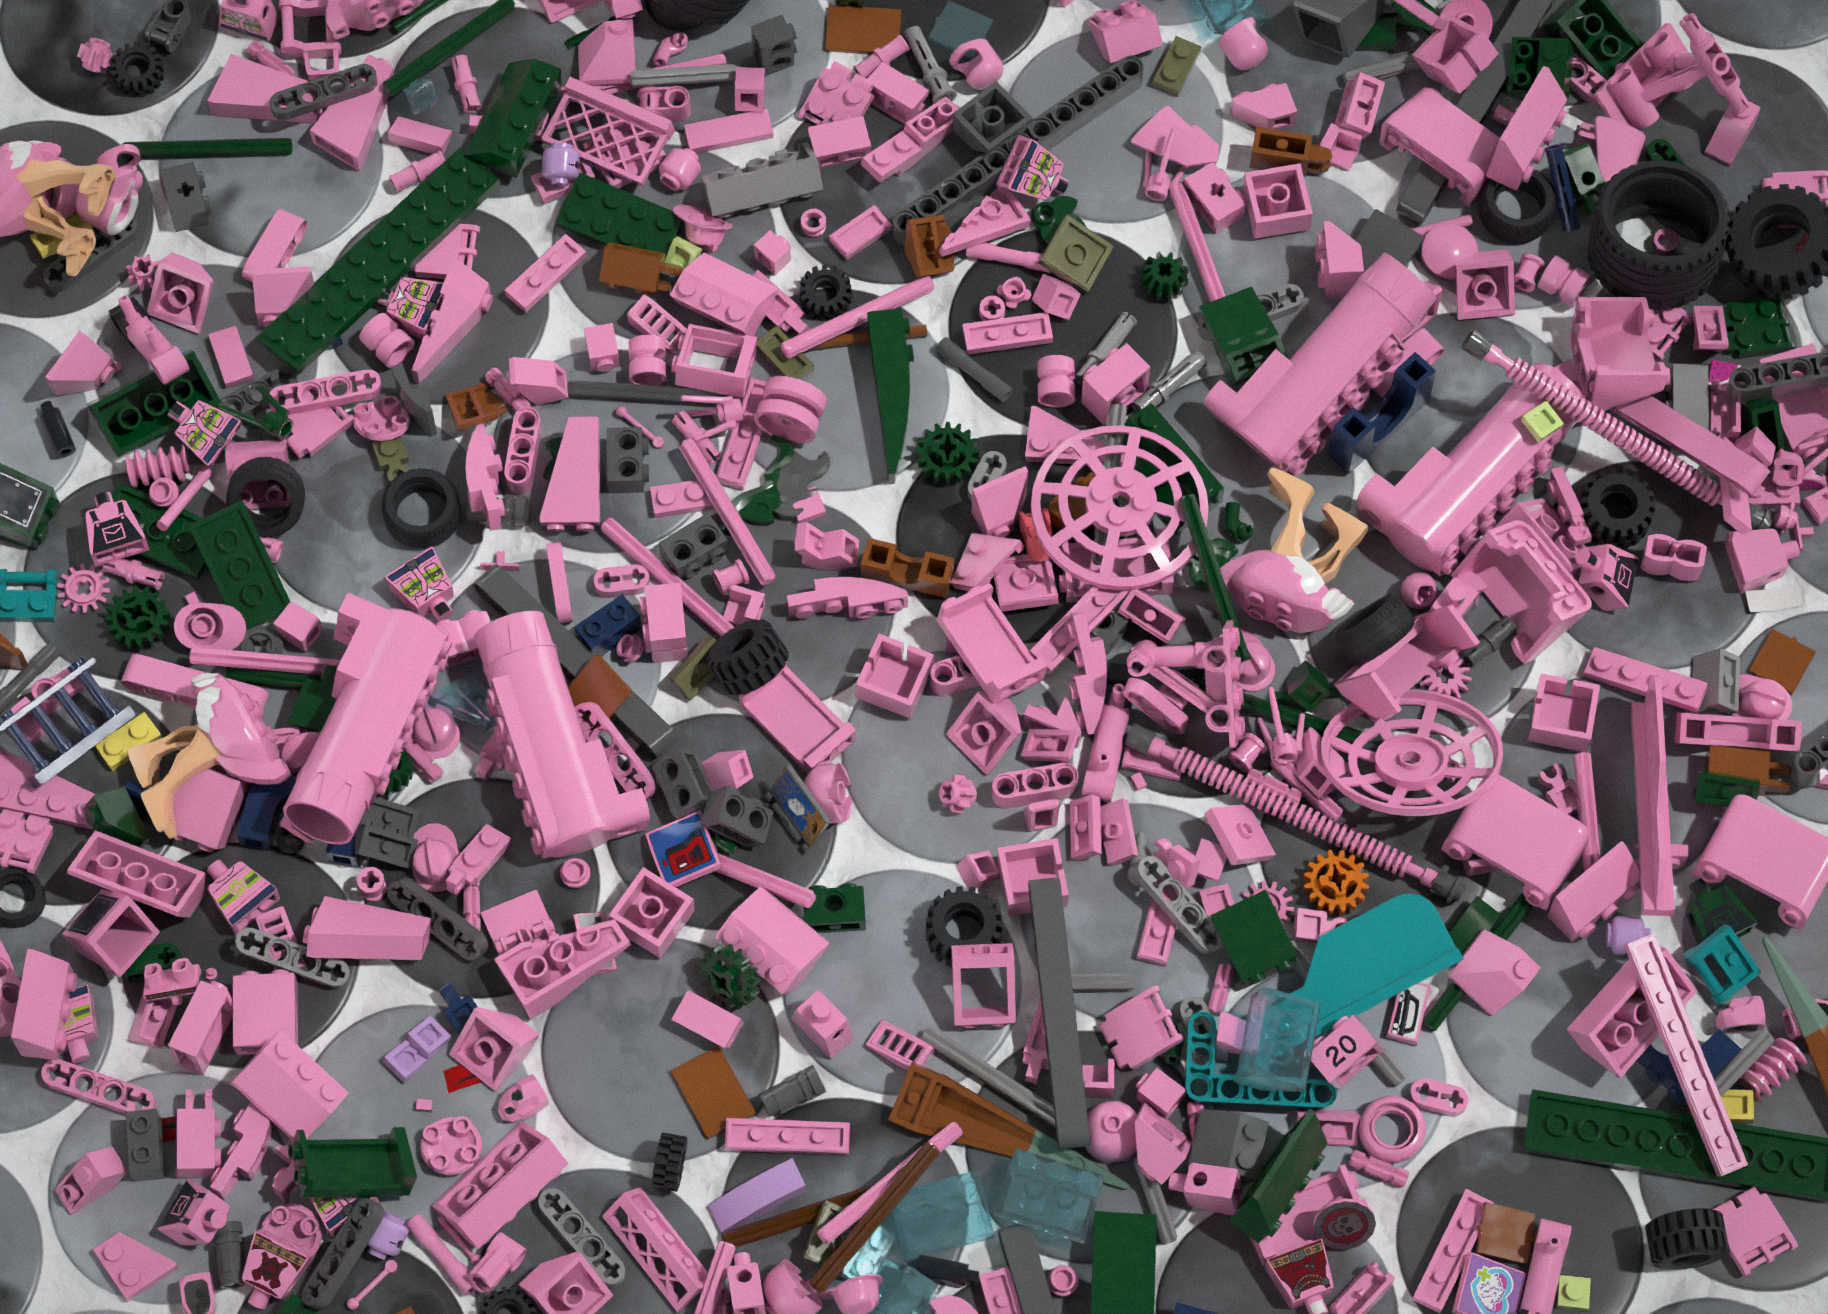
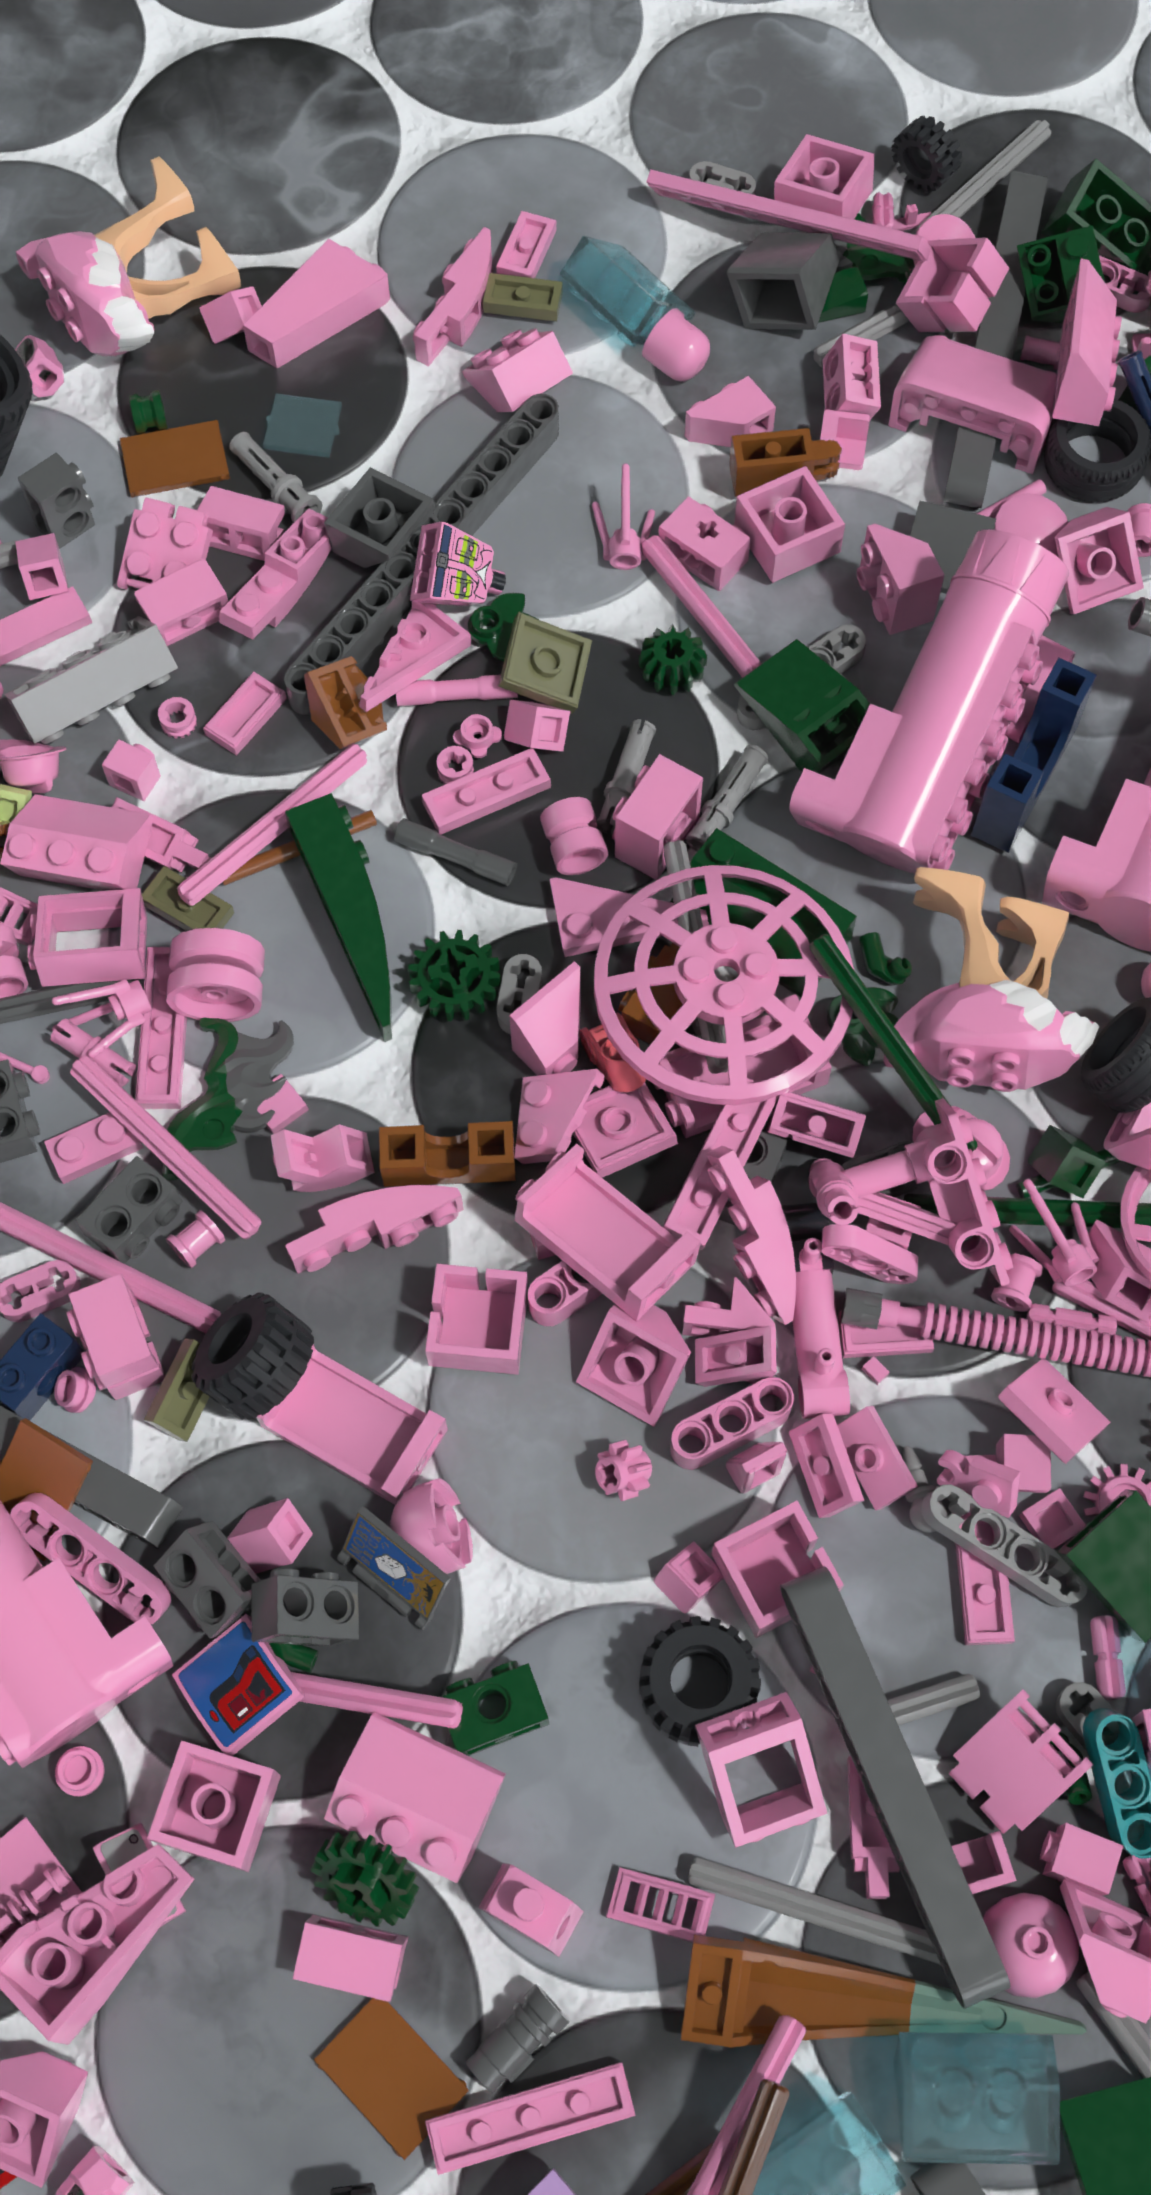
camera: 15 degrees left, 0 degrees up
(744, 605) = (227, 1277): bright pink panel -> none
(825, 277) = (215, 784): black tyre -> none
(885, 54) = (214, 475): bright pink pin -> none
(982, 69) = (346, 464): bright pink helmet -> none
(1176, 66) = (597, 398): olive plate -> none
(1190, 144) = (652, 484): bright pink panel -> none

